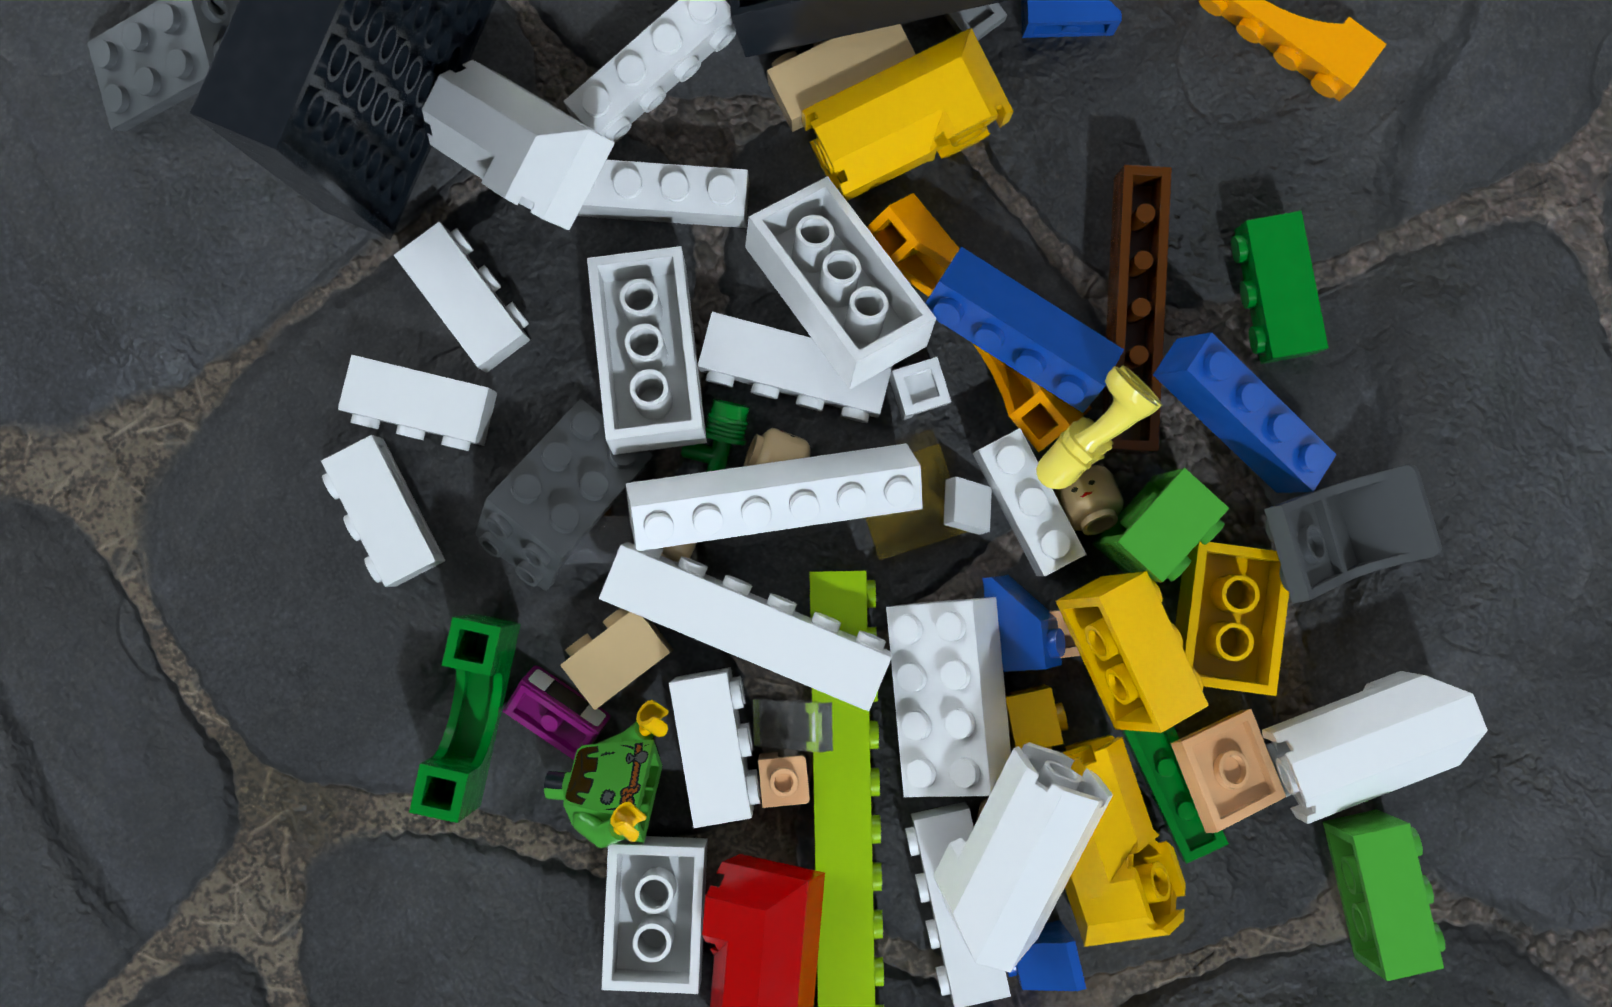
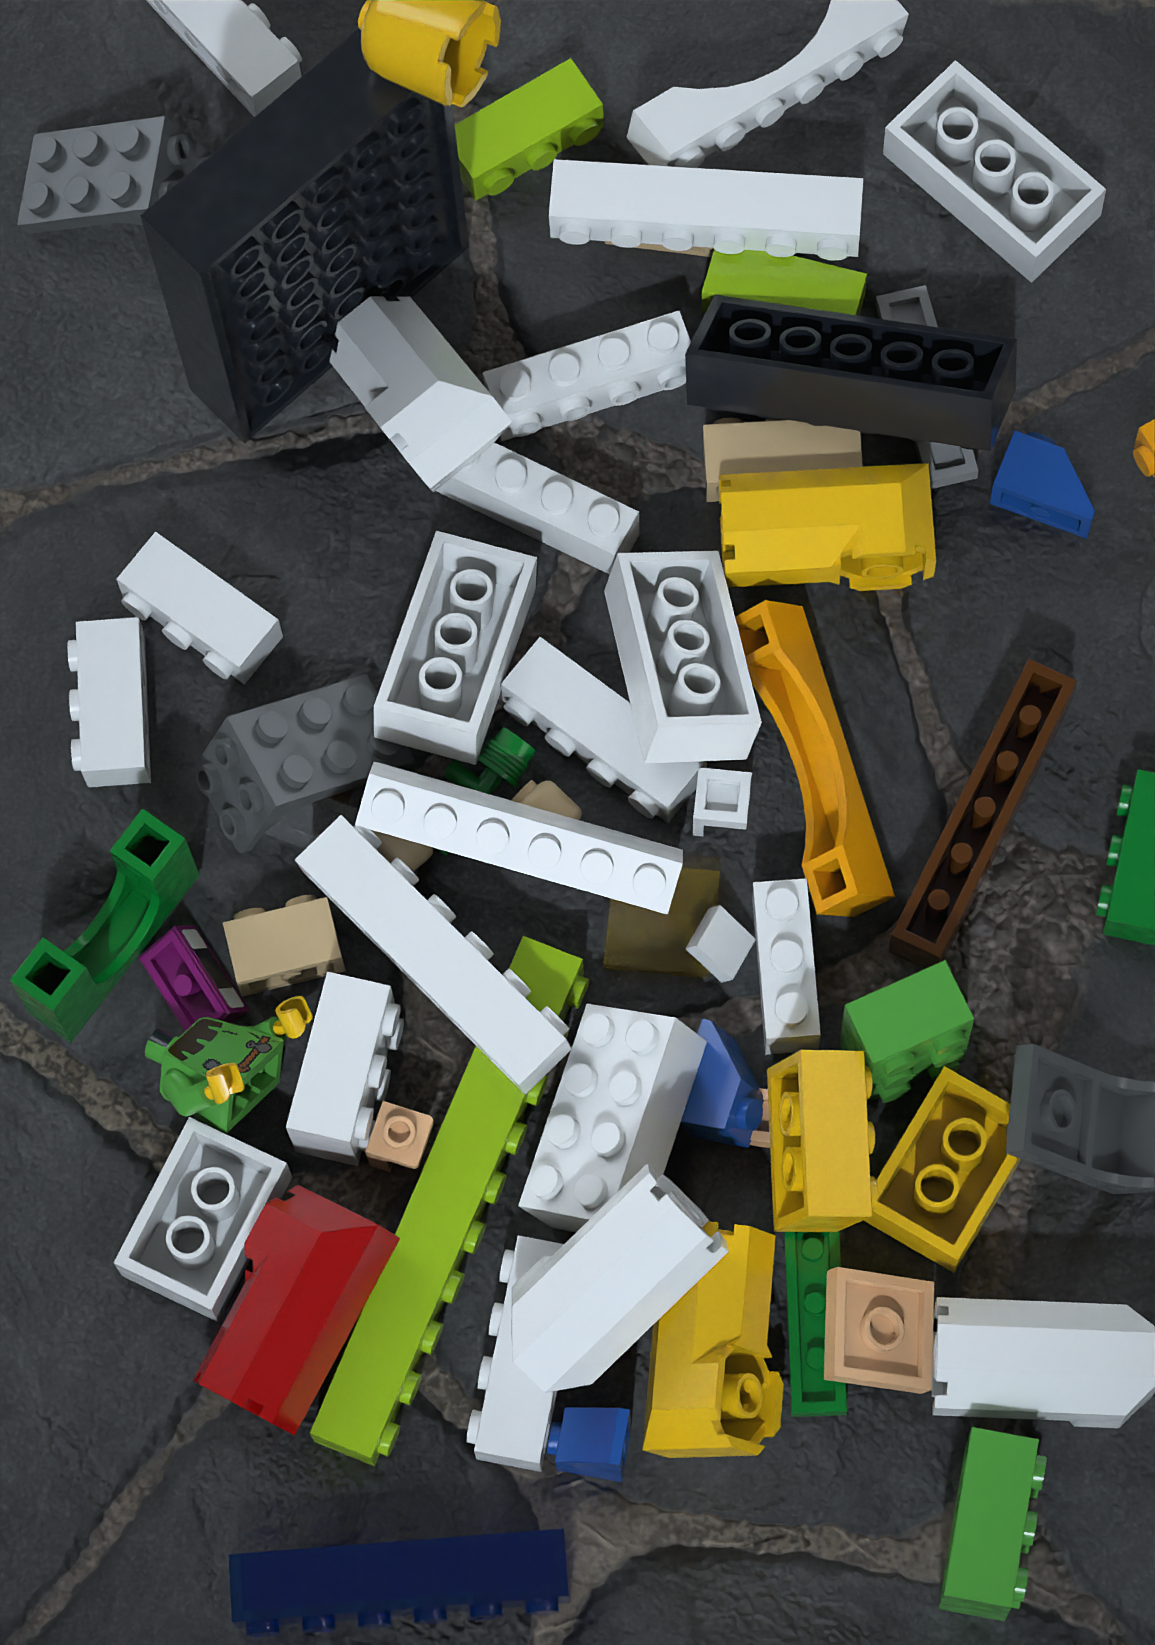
camera: 30 degrees right, 15 degrees down
(464, 296) = (295, 525): white brick -> none
(793, 724) = (435, 1085): clear tile -> none
(1023, 330) = (848, 775): blue brick -> none
(1035, 717) = (701, 1181): yellow brick -> none
(1088, 440) = (864, 913): light yellow piece -> none
(1092, 501) = (845, 977): tan head -> none
(1244, 413) = (1048, 958): blue brick -> none

